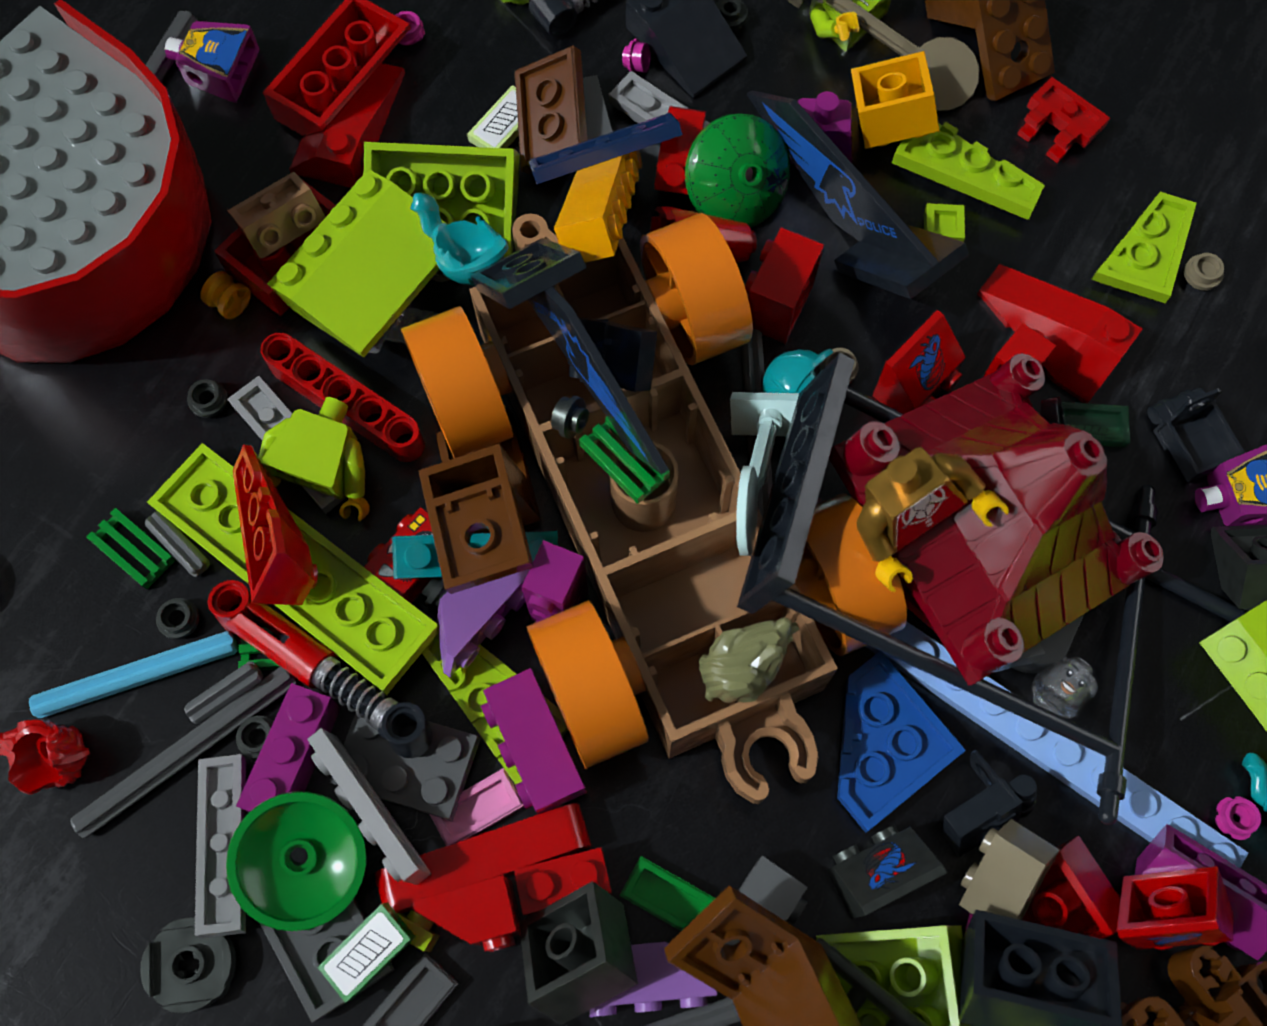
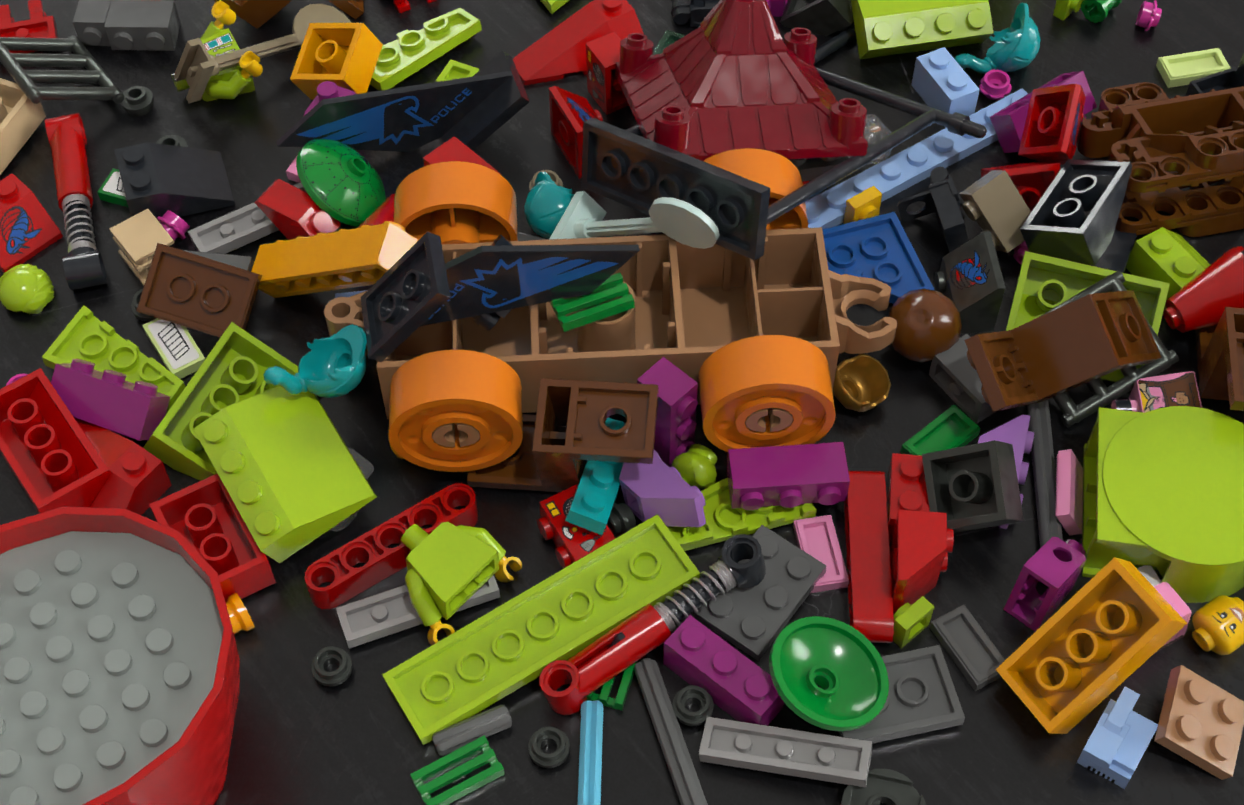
camera: 70 degrees left, 15 degrees down
(223, 692) = (641, 720): dark grey axle -> none
(273, 545) = (519, 608): red wedge -> none
(277, 214) = (195, 512): medium nougat bracket -> none
(366, 952) = (922, 648): tile -> none
(377, 822) = (821, 601): light grey plate -> none
(408, 92) = (110, 399): none -> magenta brick
(461, 79) = (99, 343): none -> lime wing
(515, 645) = (697, 466): none -> lime animal
(570, 416) = (541, 322): pearl dark grey plate -> none
(601, 43) = (138, 240): none -> tan piece
(605, 147) = (275, 253): dark blue tile -> none
(697, 784) = (861, 383): none -> pearl gold hair
(746, 660) = (803, 263): olive hair -> none
(798, 832) = (925, 324): none -> reddish brown piece
(912, 499) = (733, 110): pearl gold torso -> none
(956, 712) = (863, 205): none -> yellow plate
(1196, 754) = (944, 83): none -> light blue brick

